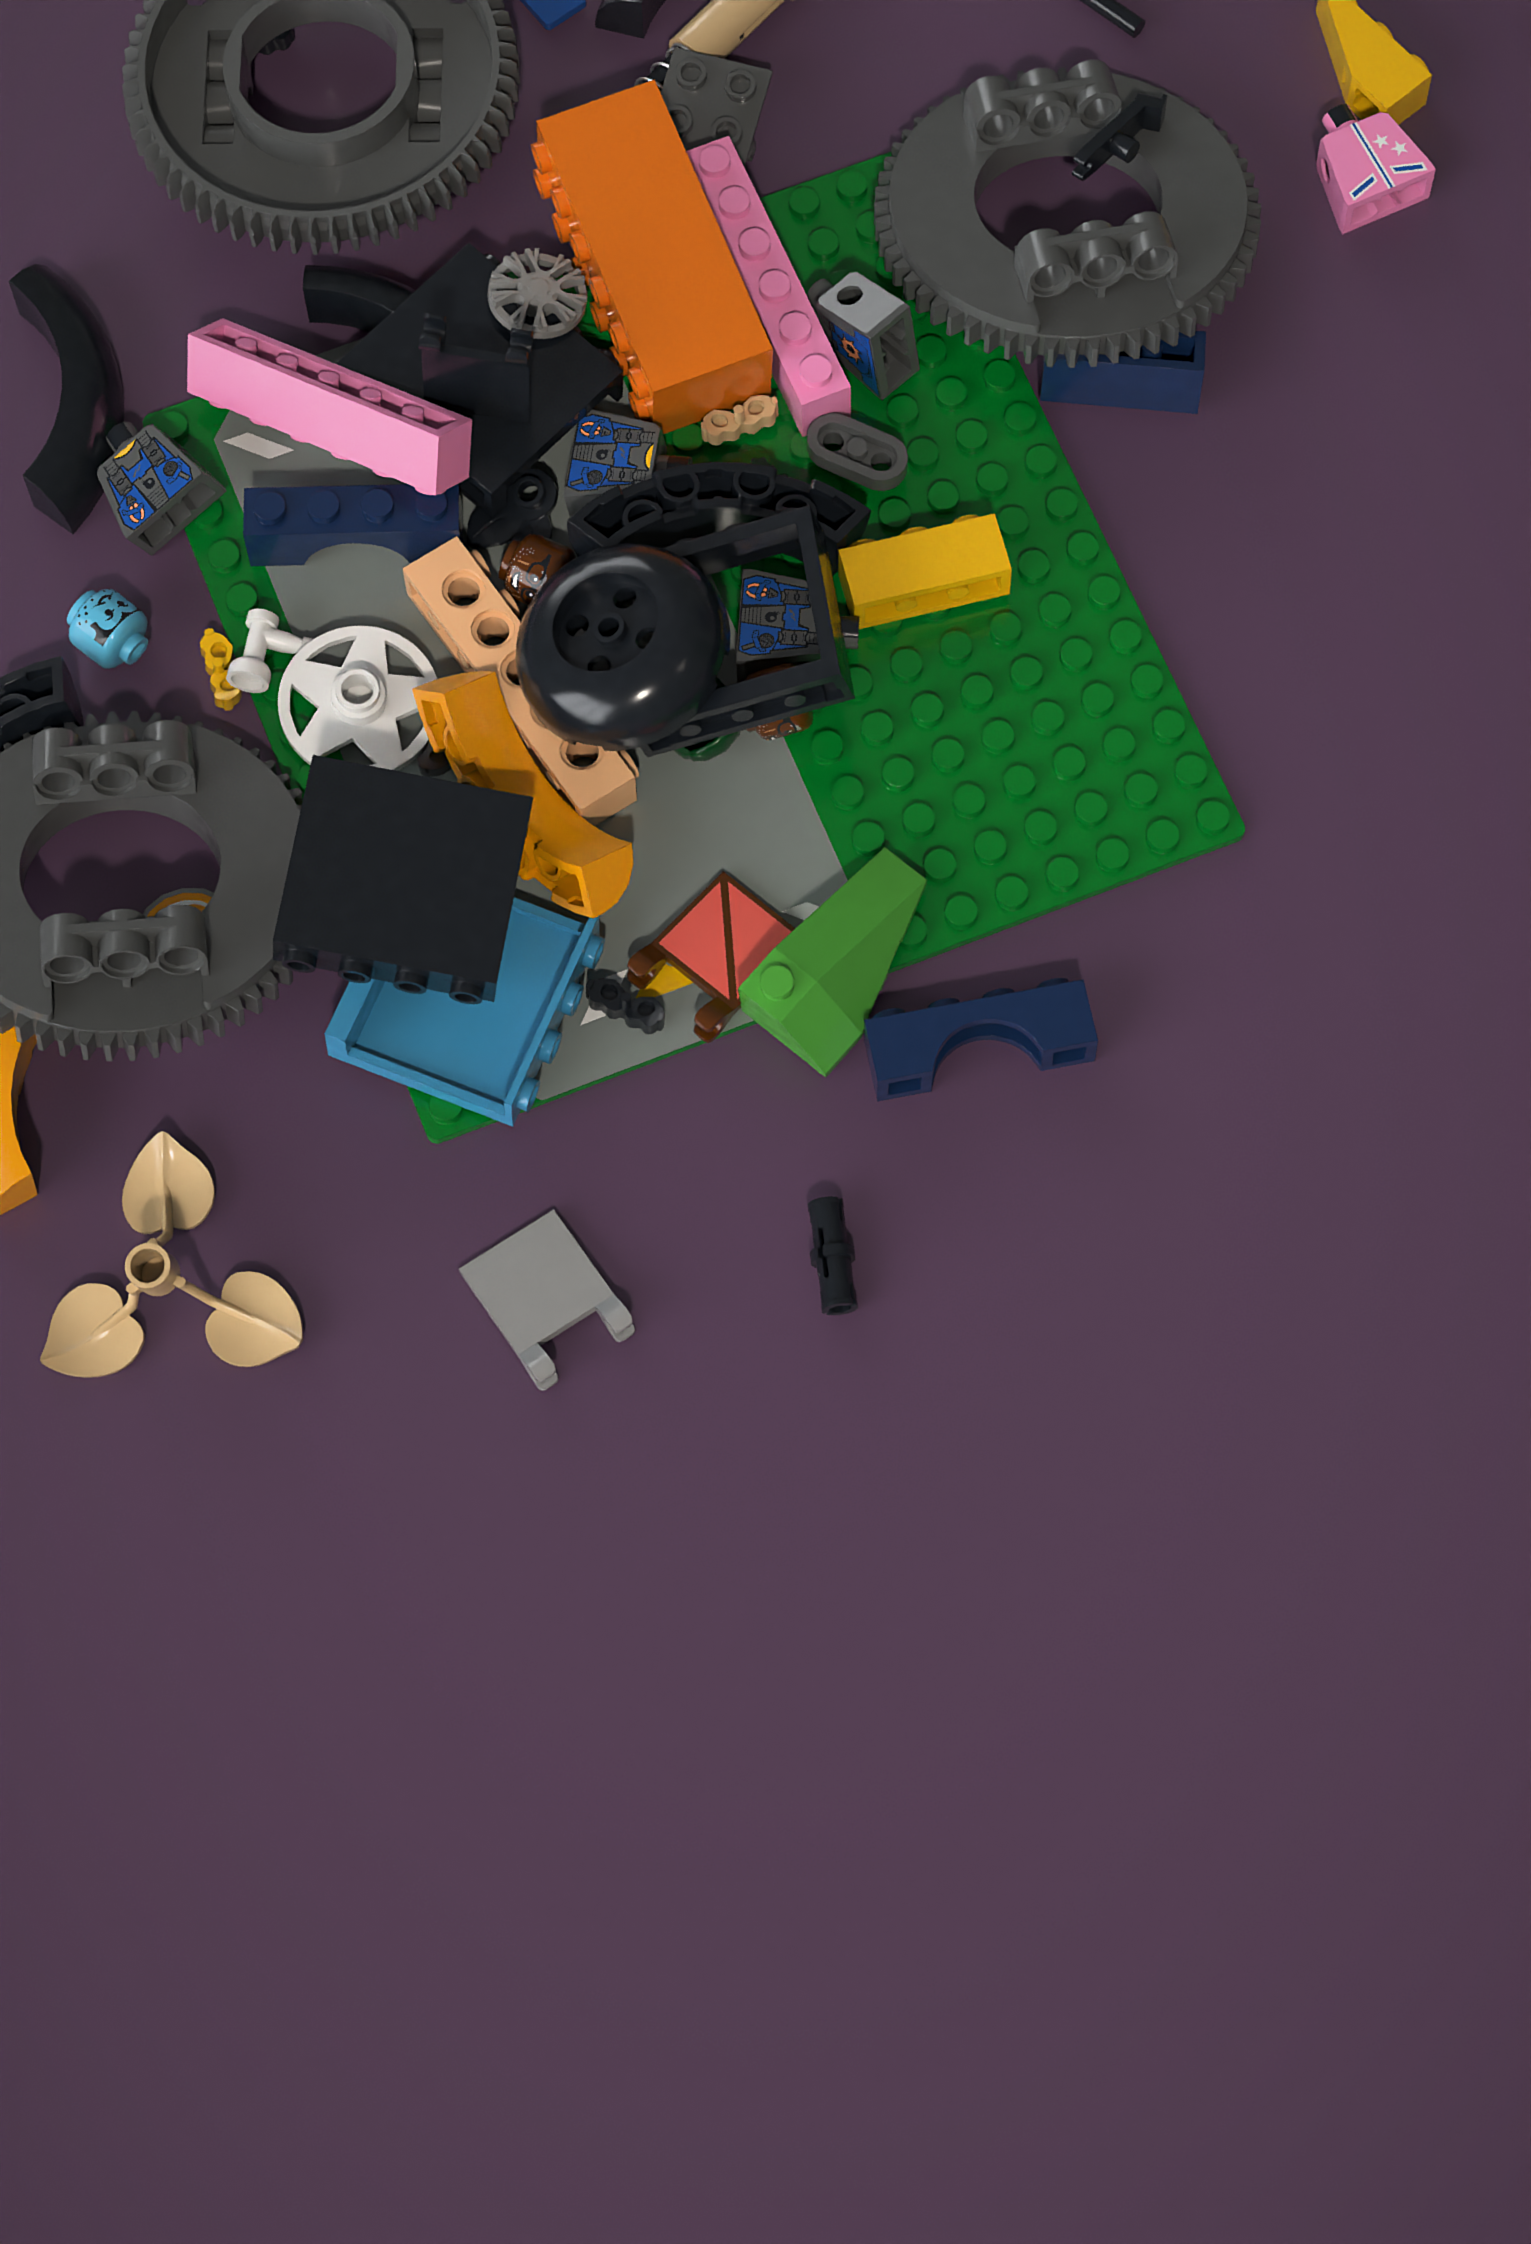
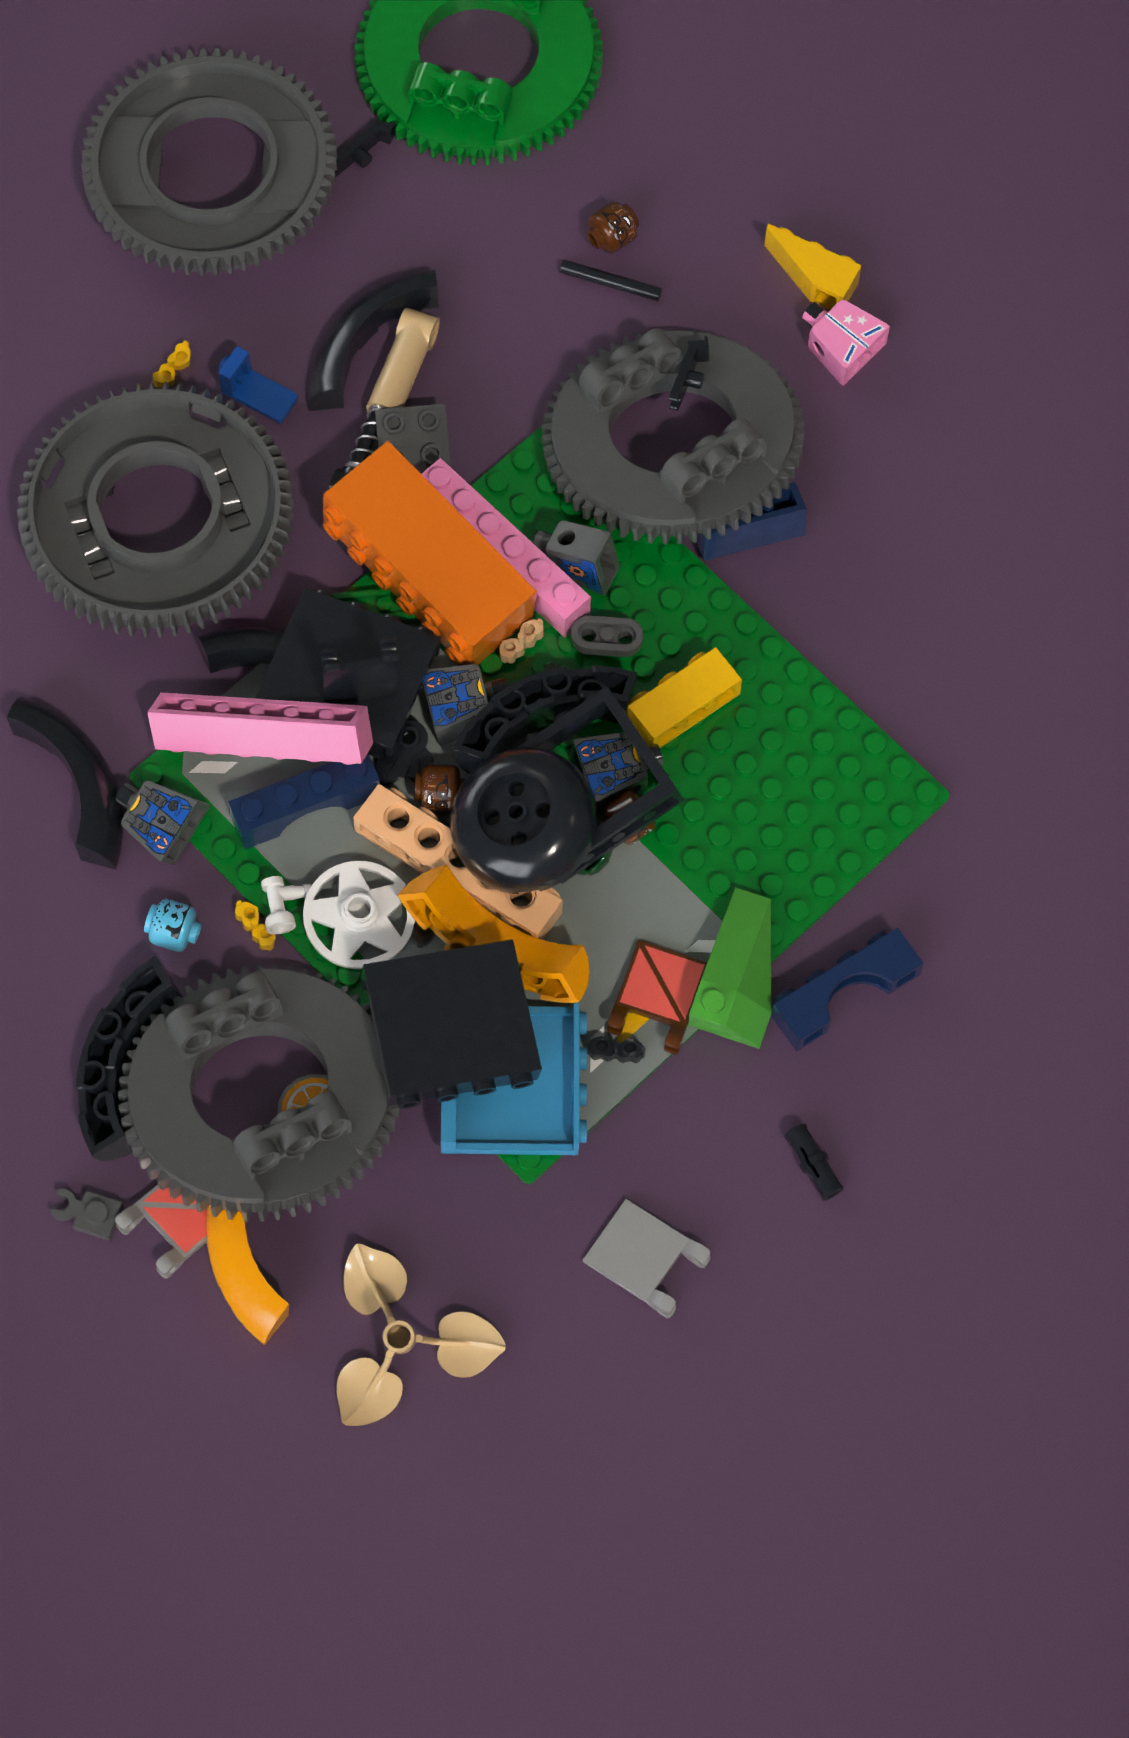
camera: 25 degrees left, 0 degrees up
(537, 293) = (365, 606): light grey wheel -> none

